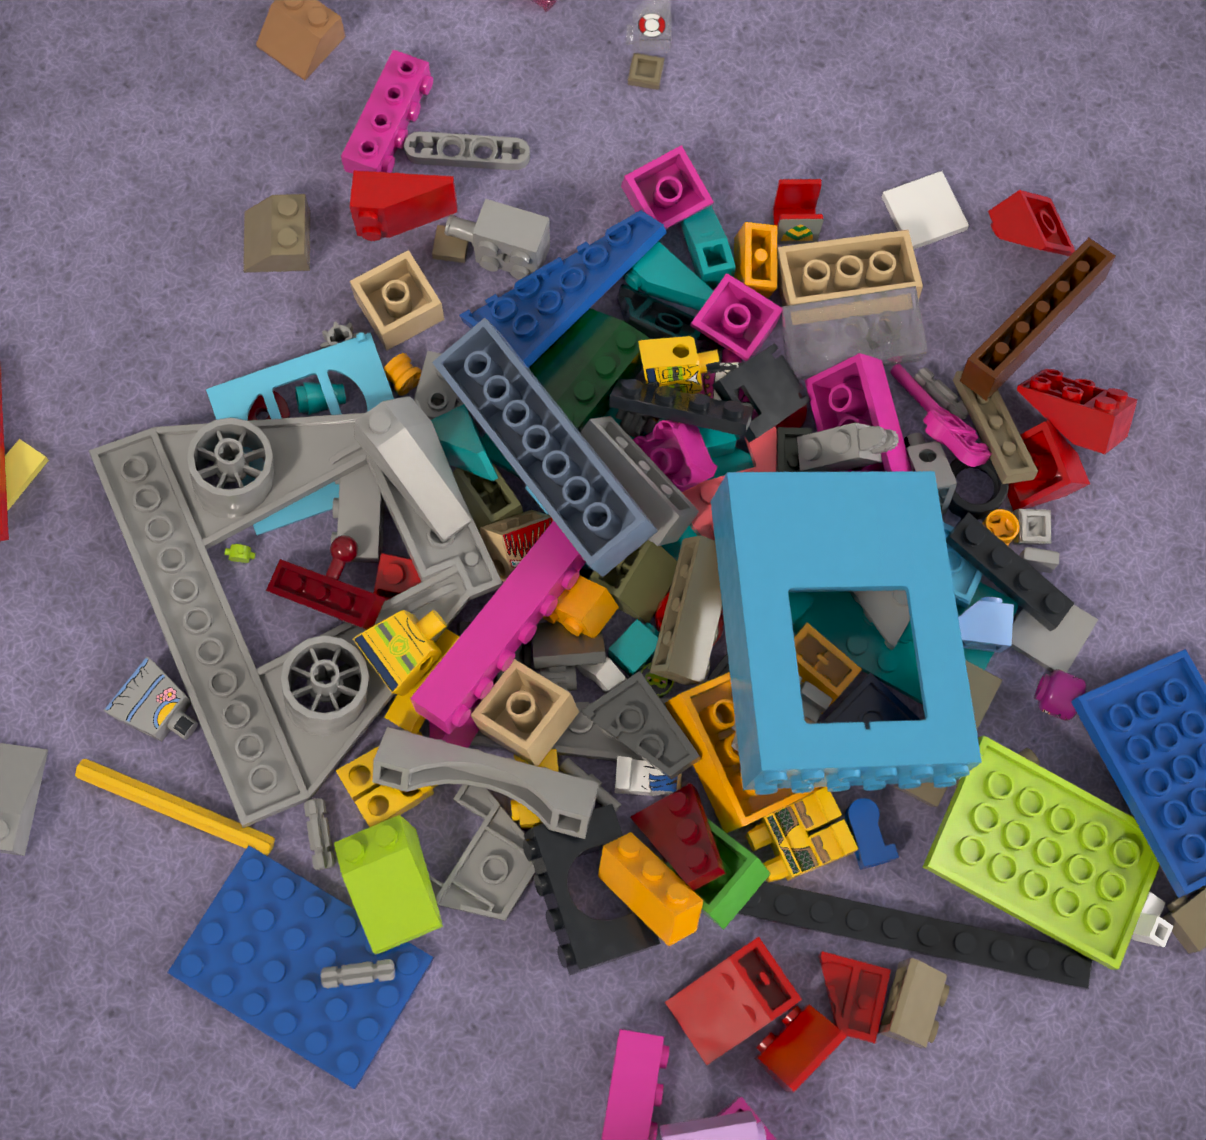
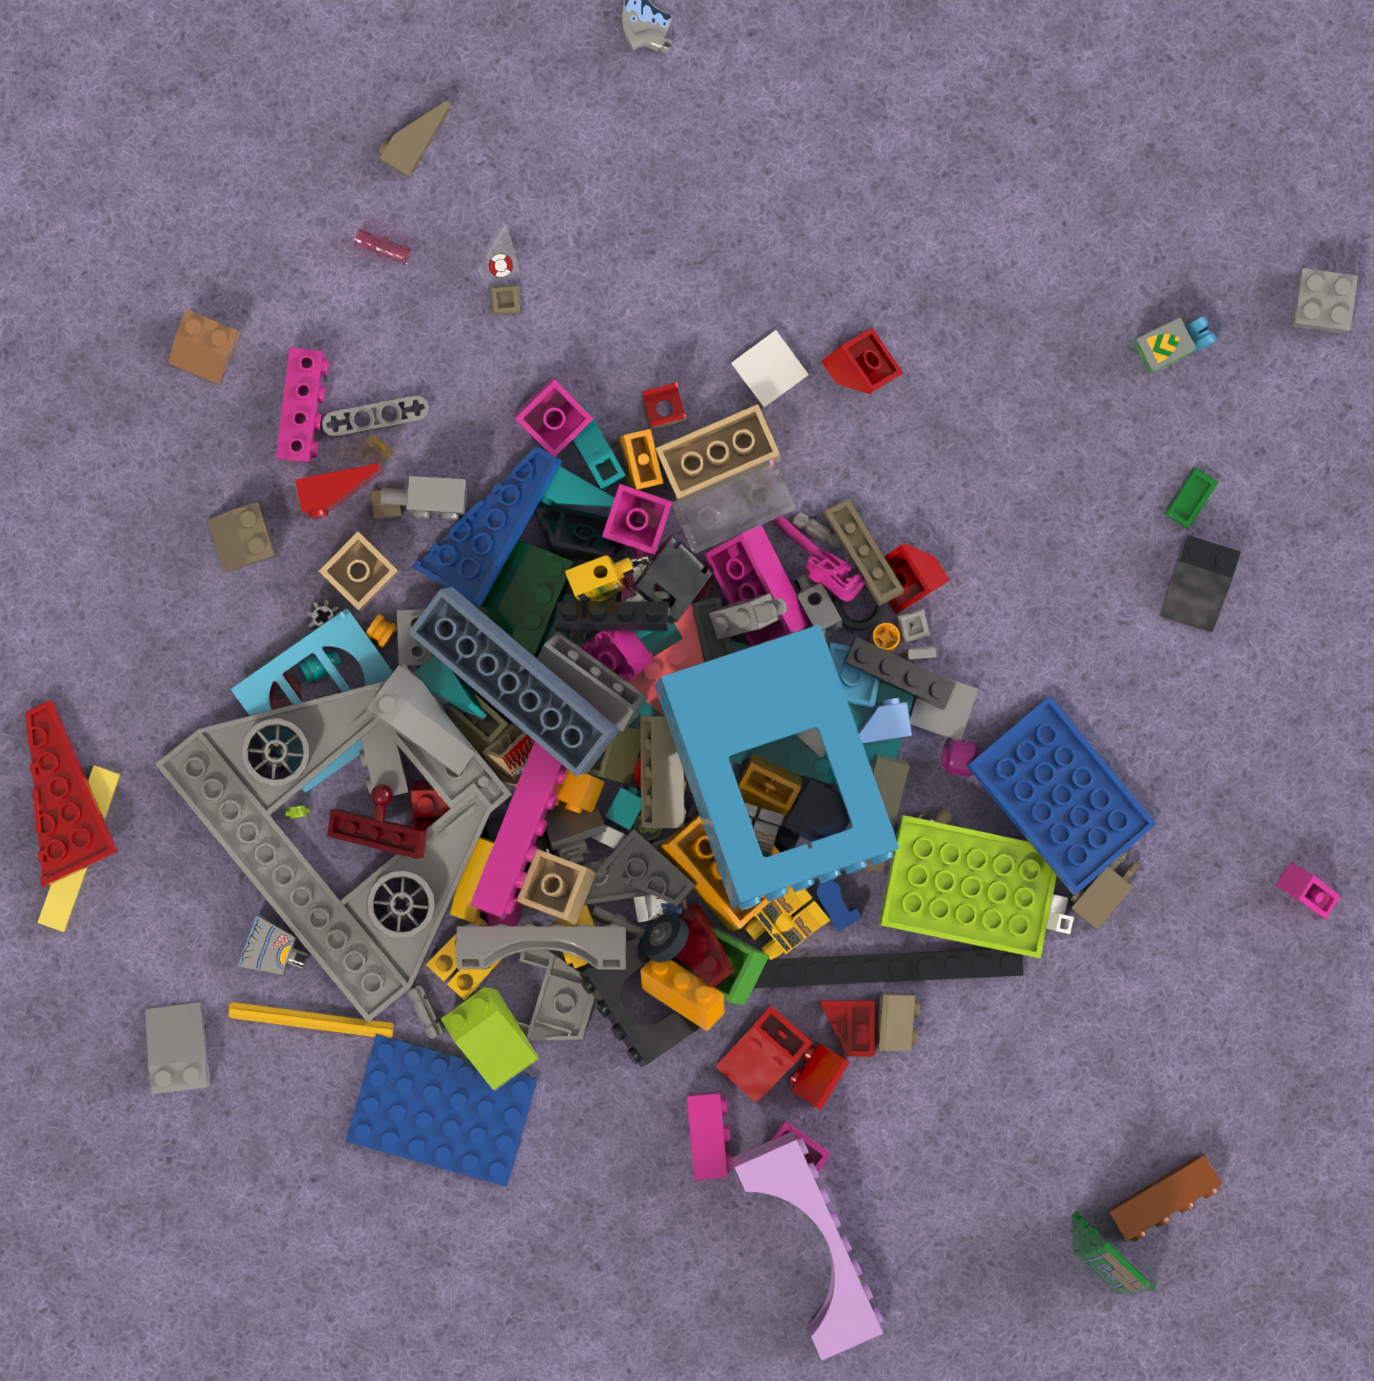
camera: 15 degrees left, 15 degrees up
(357, 973) = (486, 1106): light grey axle -> none
(402, 648) = (451, 865): yellow torso -> none
(463, 181) = (380, 447): none -> clear yellow tile
(645, 813) = (664, 937): none -> black wheel
(1037, 319) = (879, 452): reddish brown brick -> none
(1080, 410) = (927, 521): red slope -> none

